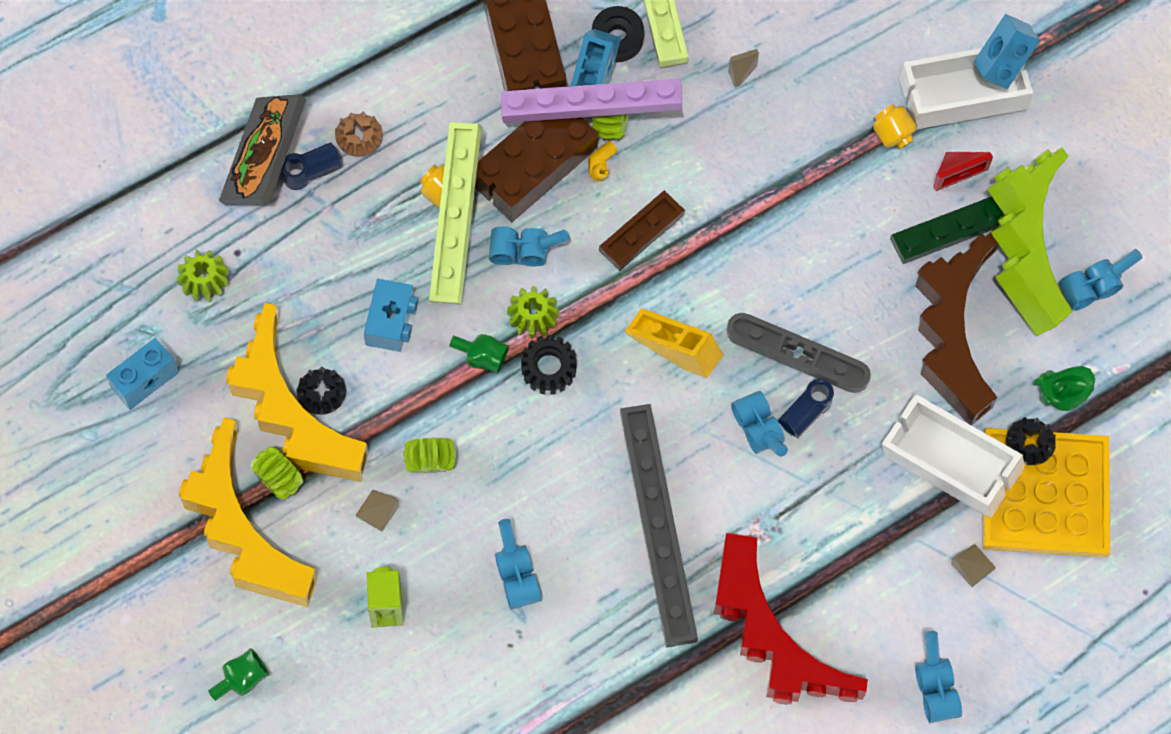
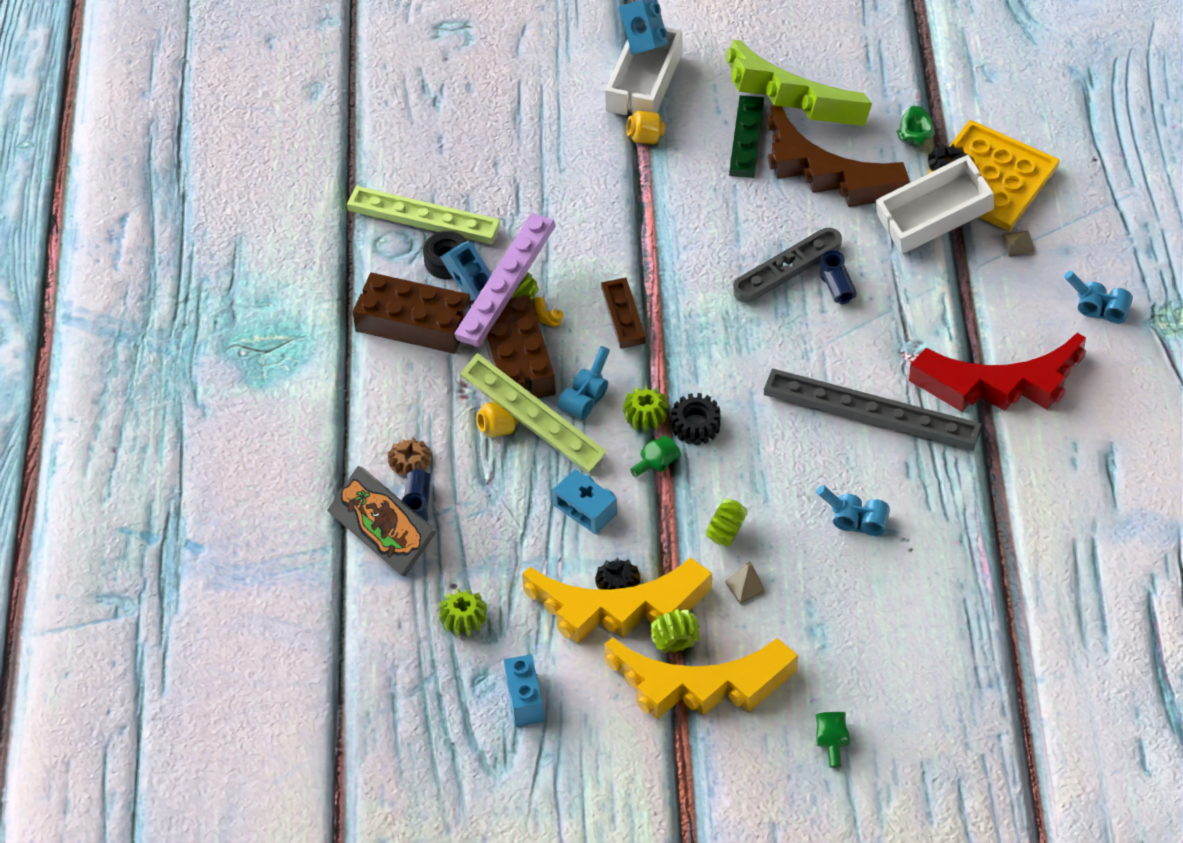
camera: 55 degrees left, 15 degrees down
(384, 597) = (830, 601): lime brick -> none
(677, 342) = (731, 331): yellow slope -> none
(742, 66) = (530, 194): dark tan slope -> none
(761, 432) = (833, 316): dark azure beam -> none
(961, 166) = (700, 108): red slope -> none
(1099, 283) = (847, 67): dark azure beam -> none

